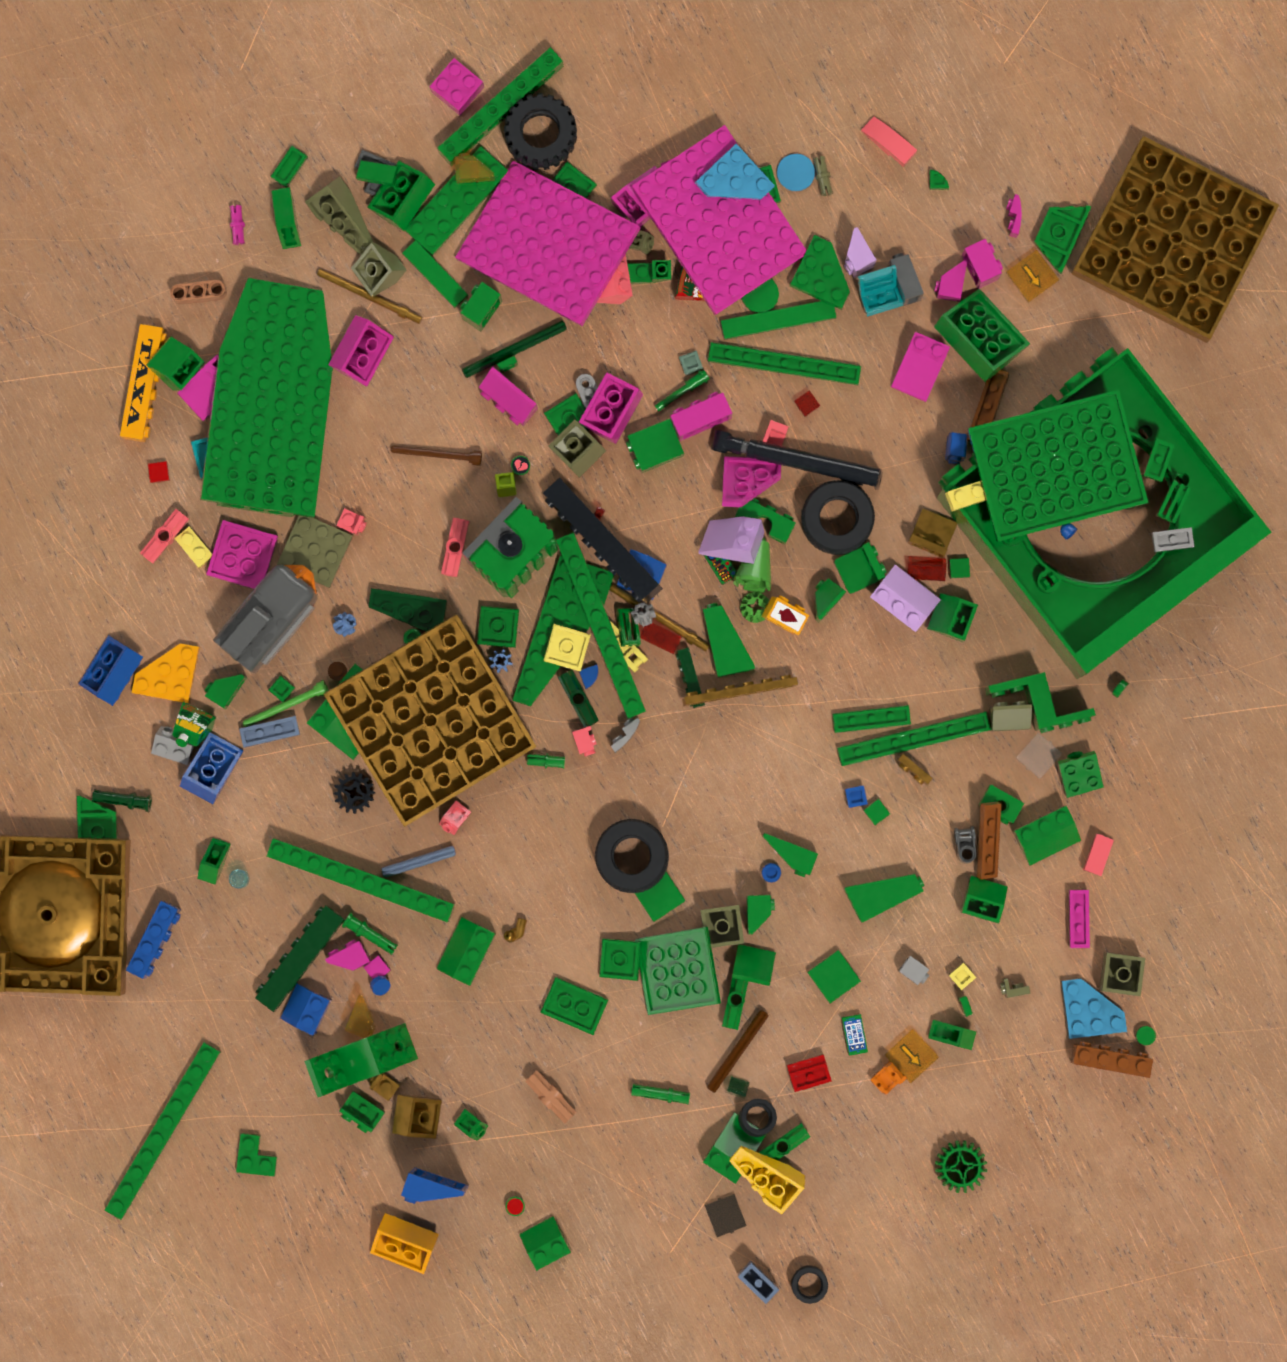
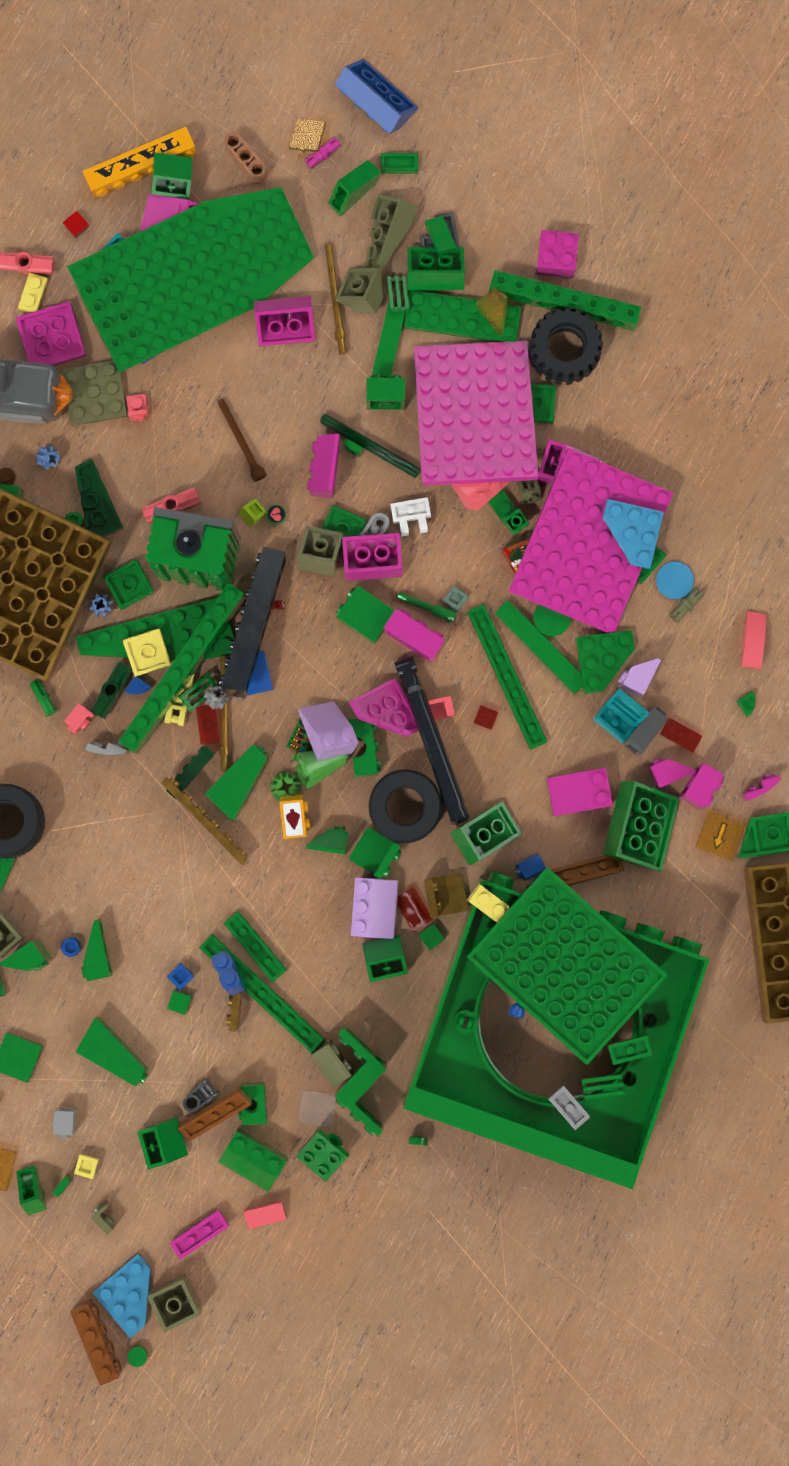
camera: 55 degrees right, 0 degrees up
(214, 227) = (307, 135): none -> clear yellow piece
(219, 148) = (375, 95): none -> blue slope
(388, 234) = (397, 280): none -> green tile
(592, 351) = (409, 511): none -> white plate
(880, 752) = (228, 975): none -> blue brick
(903, 467) = (485, 833): none -> green slope
(928, 253) = (680, 735): none -> clear red plate

